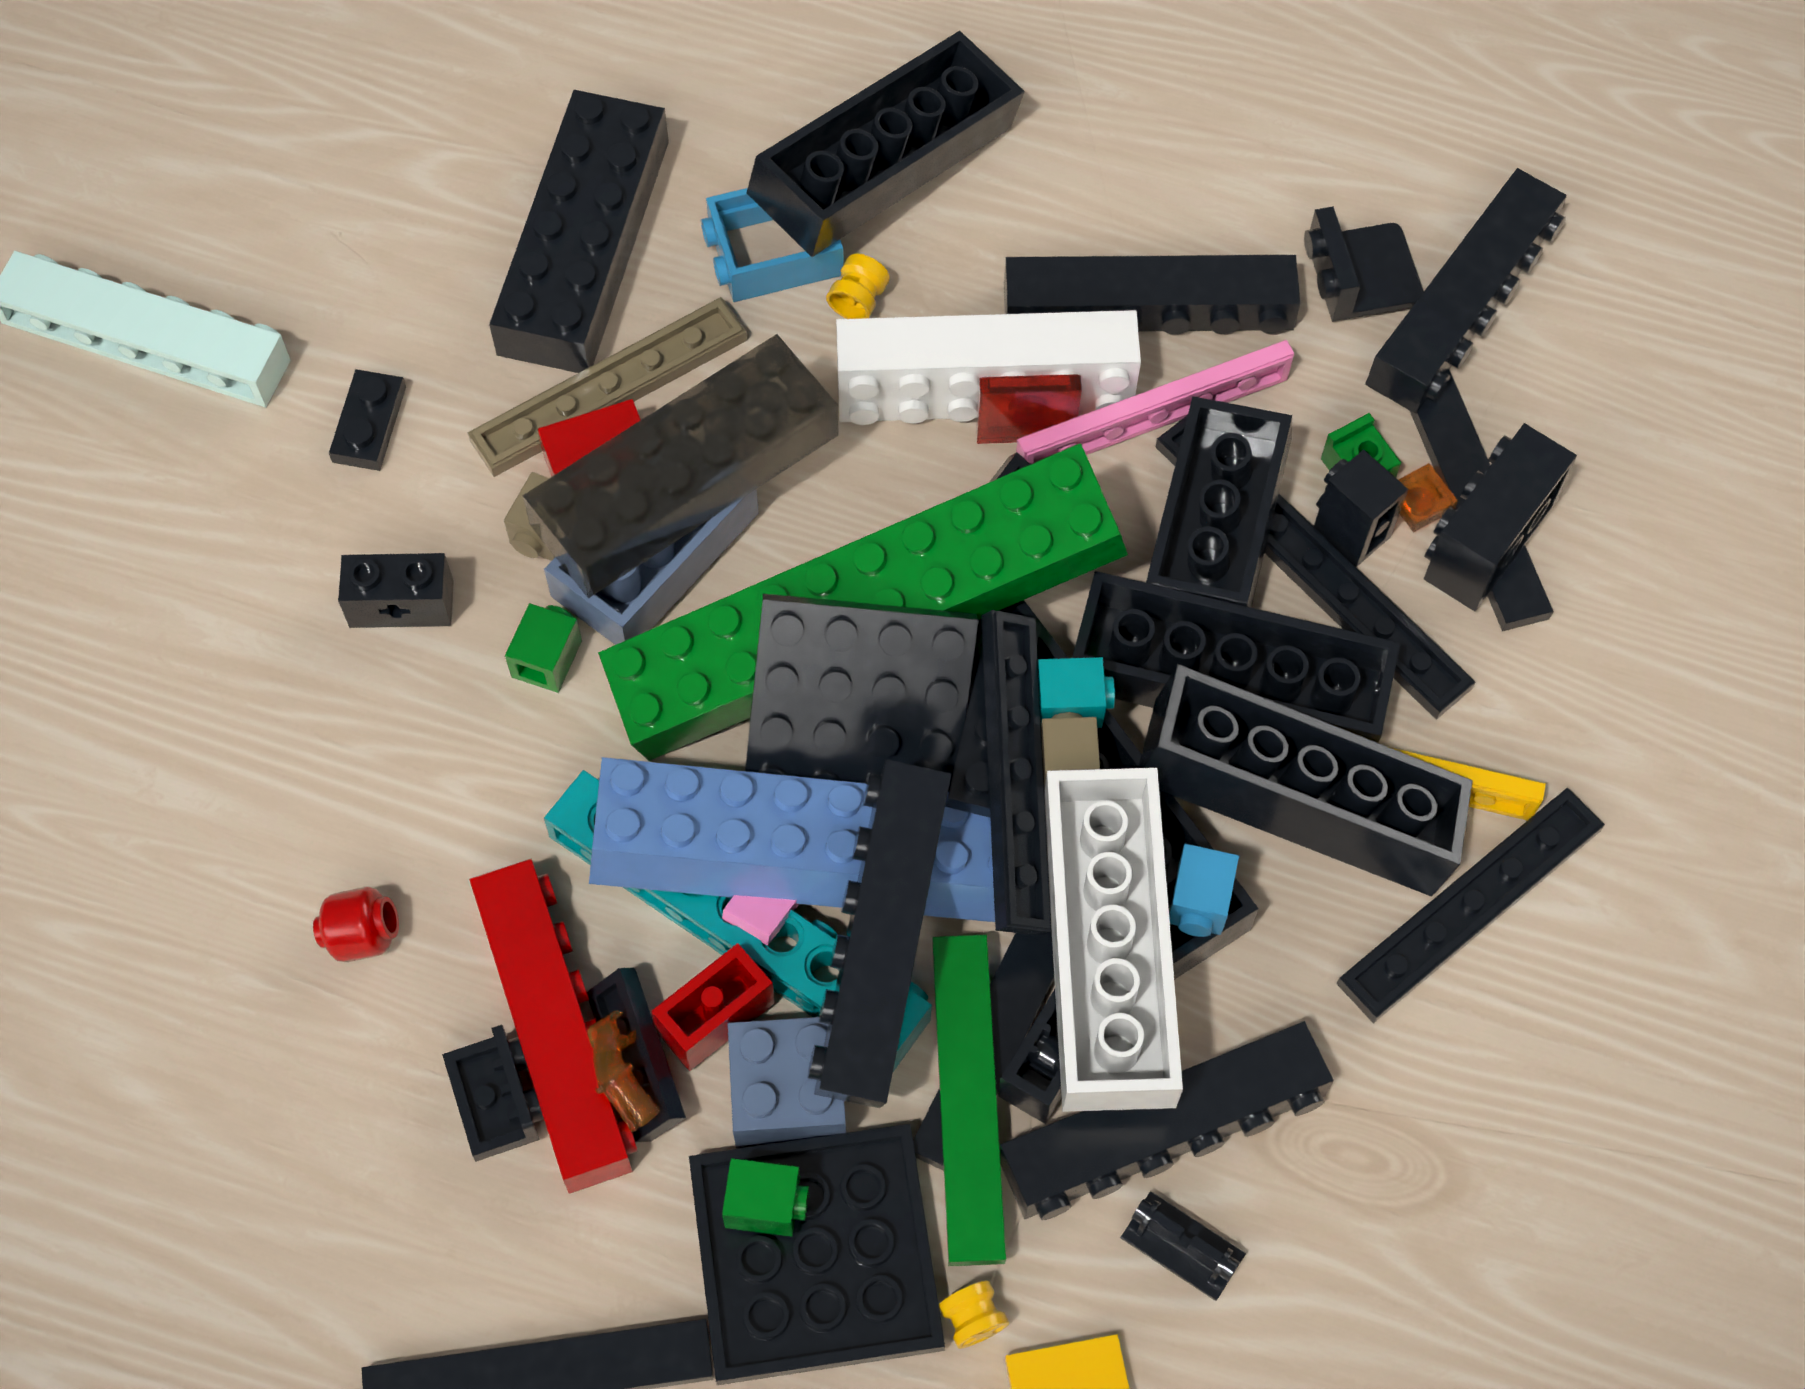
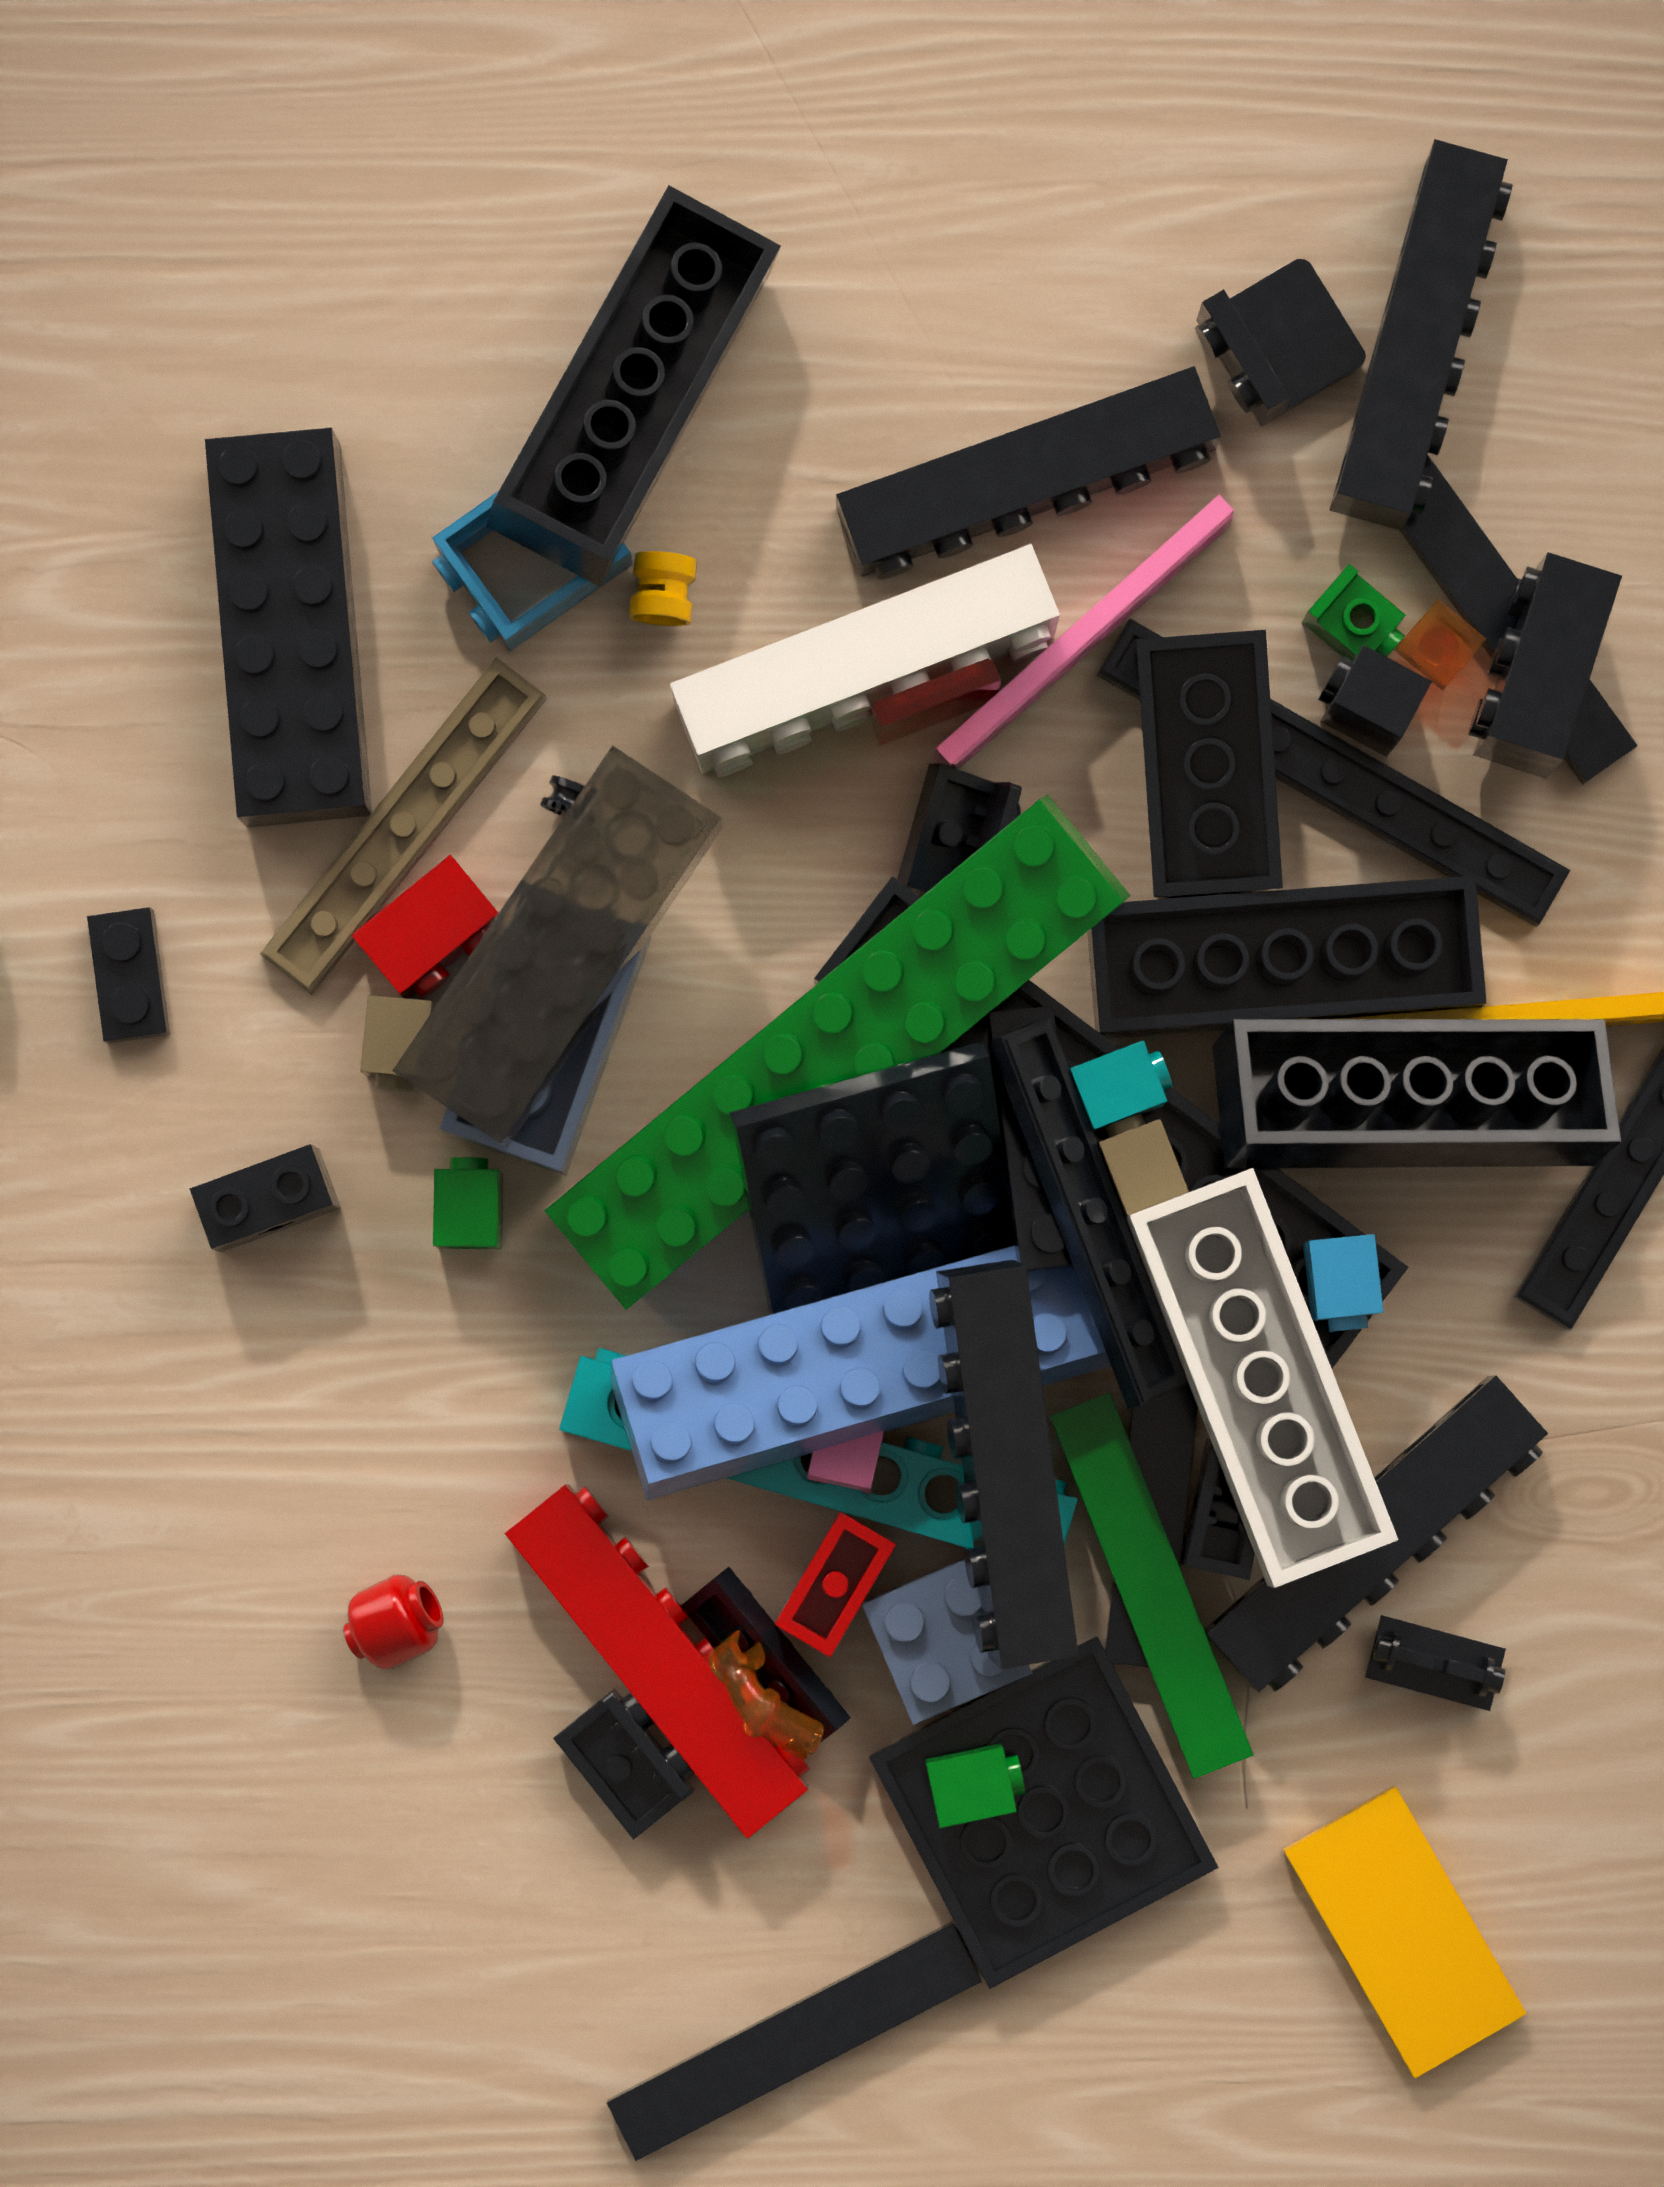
camera: 15 degrees left, 20 degrees up
(973, 1314) = (1237, 1821): yellow wheel -> none

